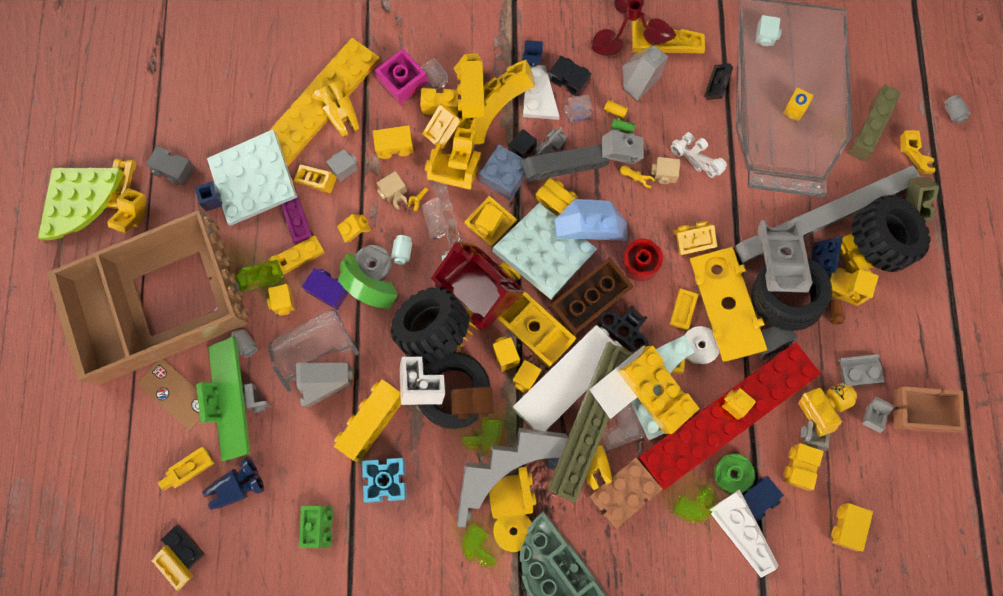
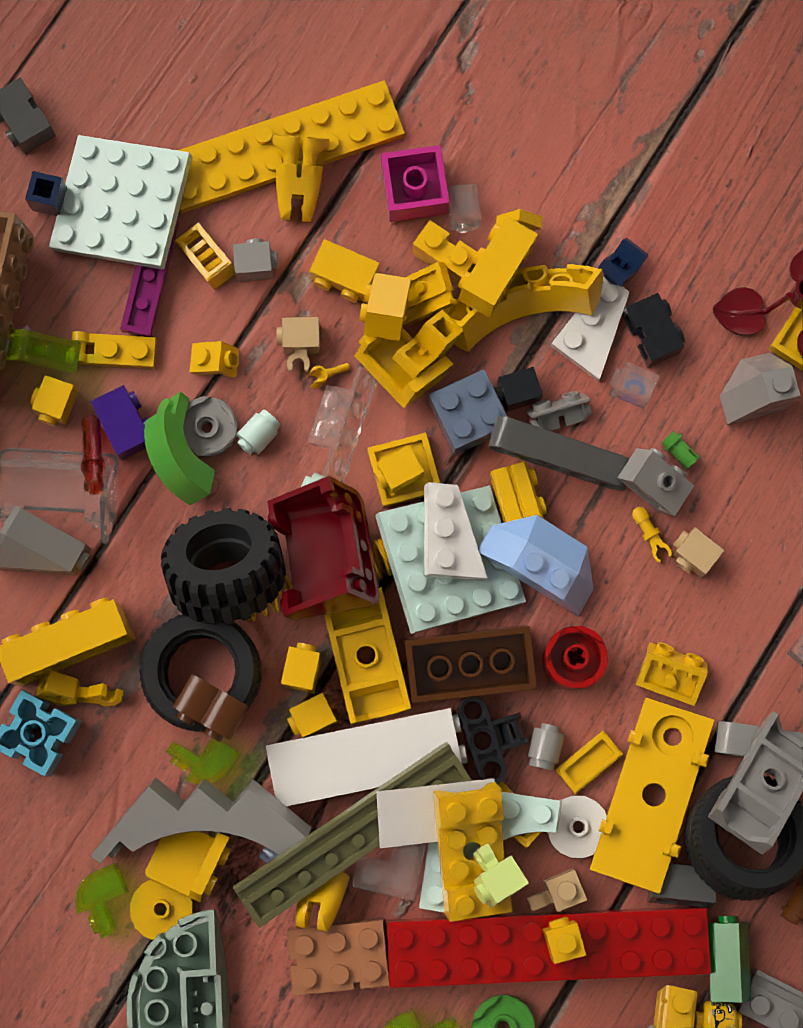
camera: 30 degrees right, 5 degrees up
(323, 317) = (92, 463): none -> clear red pin
(385, 447) = (67, 691): none -> yellow piece
(419, 388) = (148, 641): white brick -> none
(427, 142) = (385, 306): none -> yellow piece
(537, 237) = (448, 536): none -> white wing
(615, 108) = (687, 417): yellow pin -> none
(657, 314) = (545, 746): none -> light grey brick
(683, 393) = (499, 879): none -> yellowish green brick
(698, 160) = (738, 534): white plant -> none
(715, 383) = (561, 890): none -> tan brick
(824, 361) = (729, 960): none -> brick

